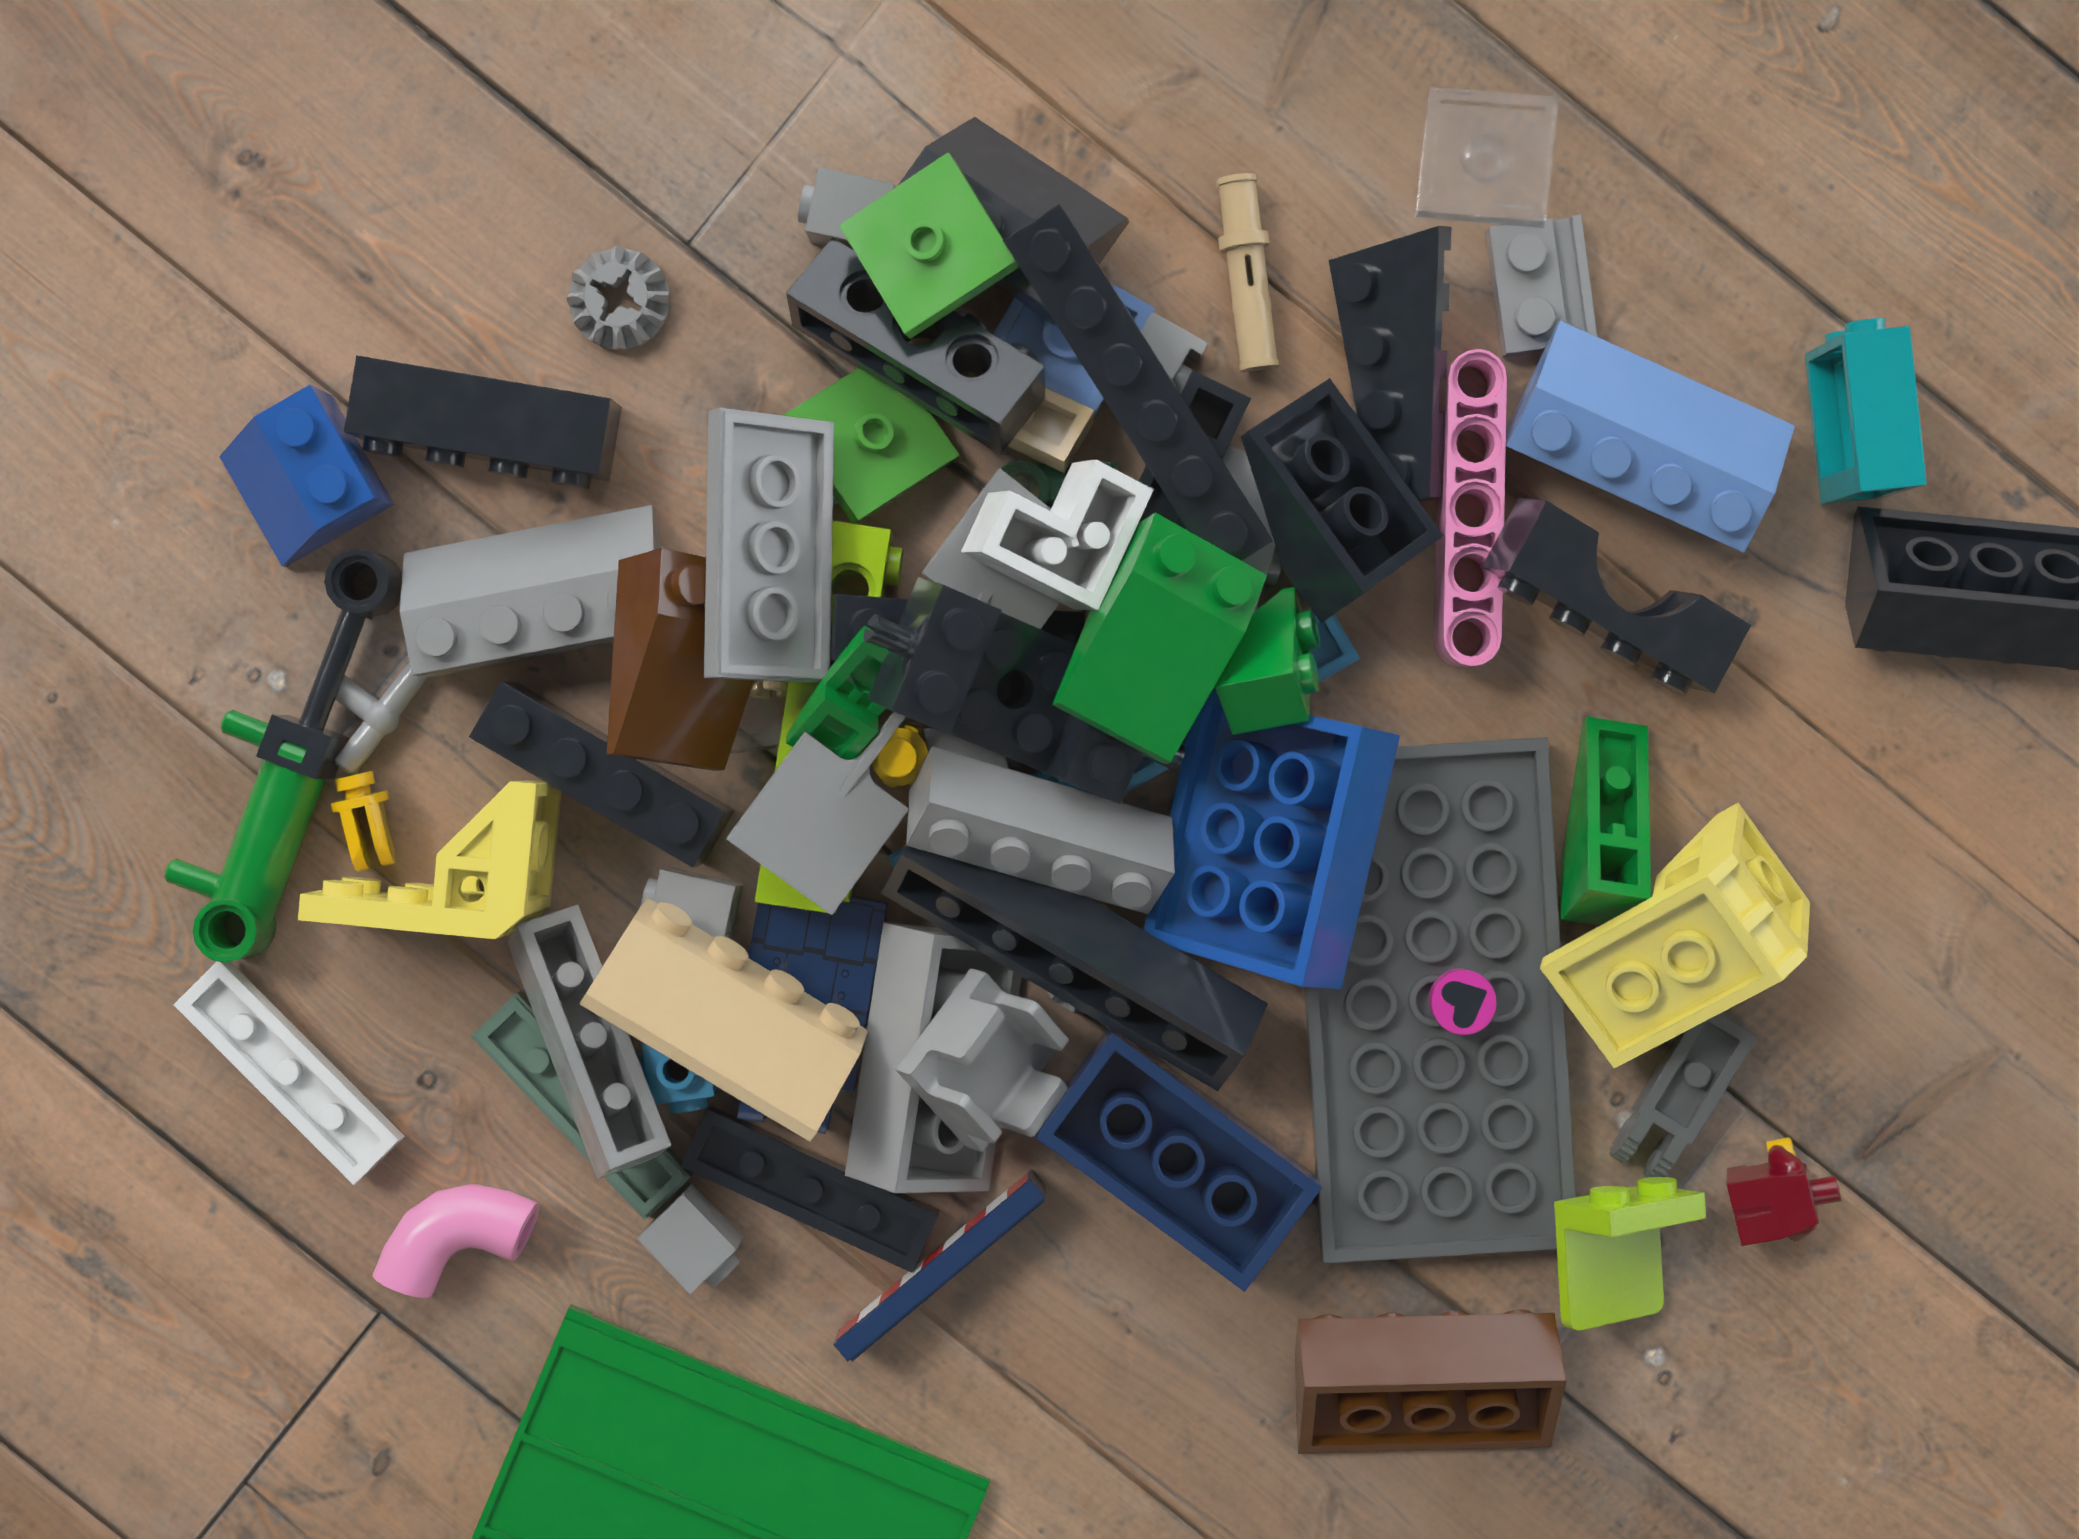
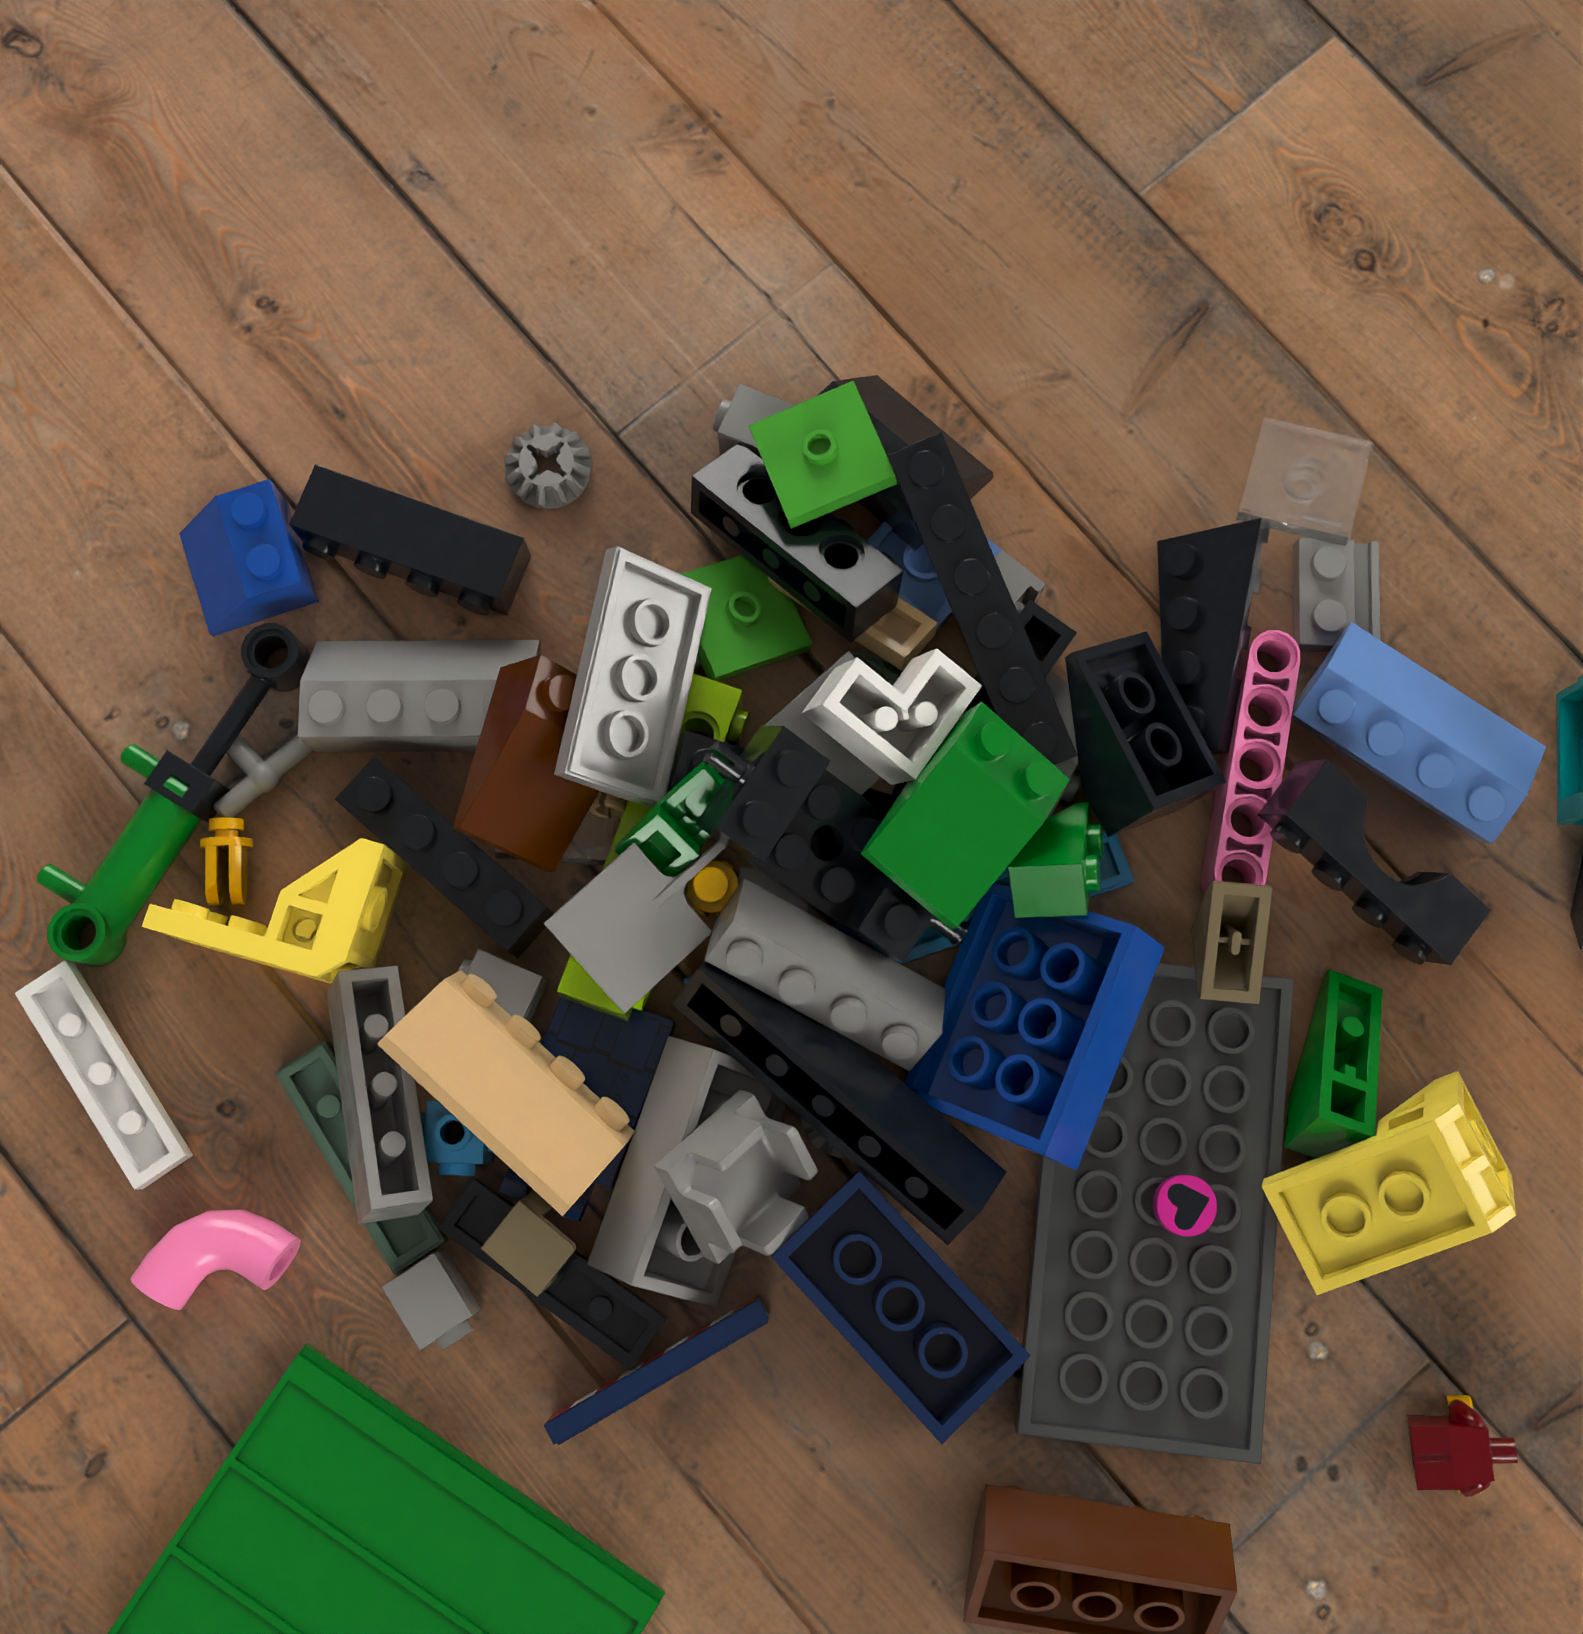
camera: 10 degrees right, 10 degrees down
(781, 1172) = (530, 1244): none -> dark tan panel
(1247, 271) = (1087, 520): tan pin -> none
(1472, 713) = (1231, 941): none -> dark tan slope
(1613, 1249) = (1293, 1471): lime bracket -> none
(1684, 1091) = (1377, 1331): dark grey hinge -> none

